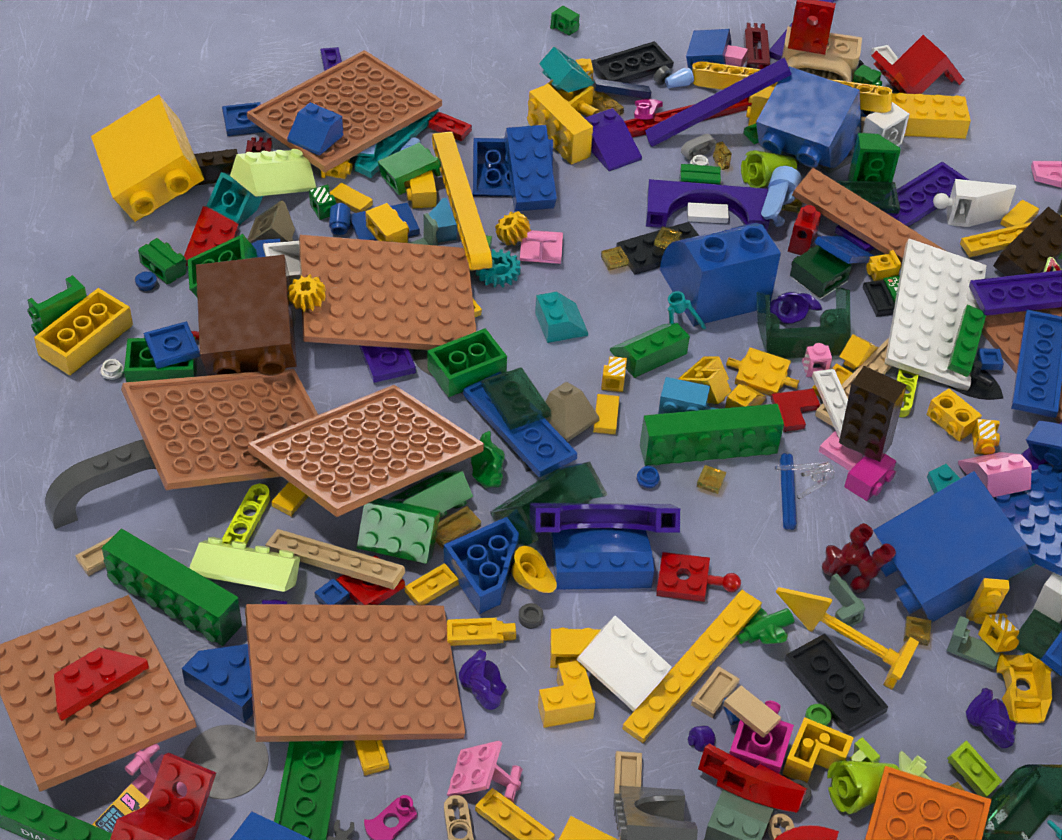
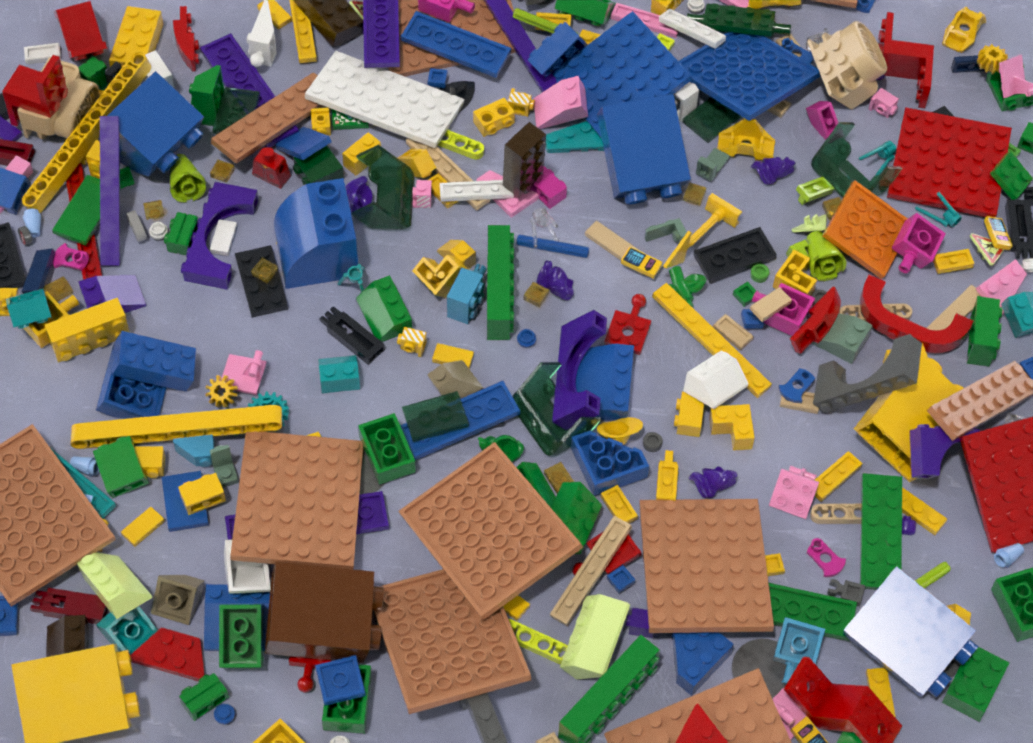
camera: 80 degrees left, 10 degrees up
(248, 783) = (796, 642): none -> dark azure brick
(306, 292) = (315, 546): yellow gear -> none
(316, 129) = (65, 536): blue slope -> none
(321, 201) = (149, 549): green brick -> none
(339, 218) = (176, 535): blue brick -> none
(445, 123) = (58, 427): red plate -> none
(602, 334) = (359, 342): none -> black hinge
(614, 258) = (271, 318): clear yellow plate -> none
(635, 756) = (792, 394): none -> blue piece
(683, 99) = (82, 213): none -> green tile
(700, 737) = (770, 348): dark purple piece -> none
(735, 495) = (555, 280): none -> dark purple hair
(762, 371) = (424, 236): yellow plate -> none
(780, 191) = (219, 168): light blue piece -> none
(783, 698) = (744, 293): none -> green tile
(787, 574) = (641, 262): none -> tile
(791, 406) = (463, 226): red tile -> none
(808, 557) = (608, 240): none -> tan tile
(858, 555) = (638, 211): dark red animal -> none
(861, 303) = (349, 156): none -> yellow brick
(879, 298) = (350, 135): black tile -> none
(950, 148) = (185, 39): none -> red slope
(967, 341) = (423, 85): green plate -> none
(987, 599) = (689, 139): yellow plate -> none
(1003, 635) = (707, 143): yellow brick -> none

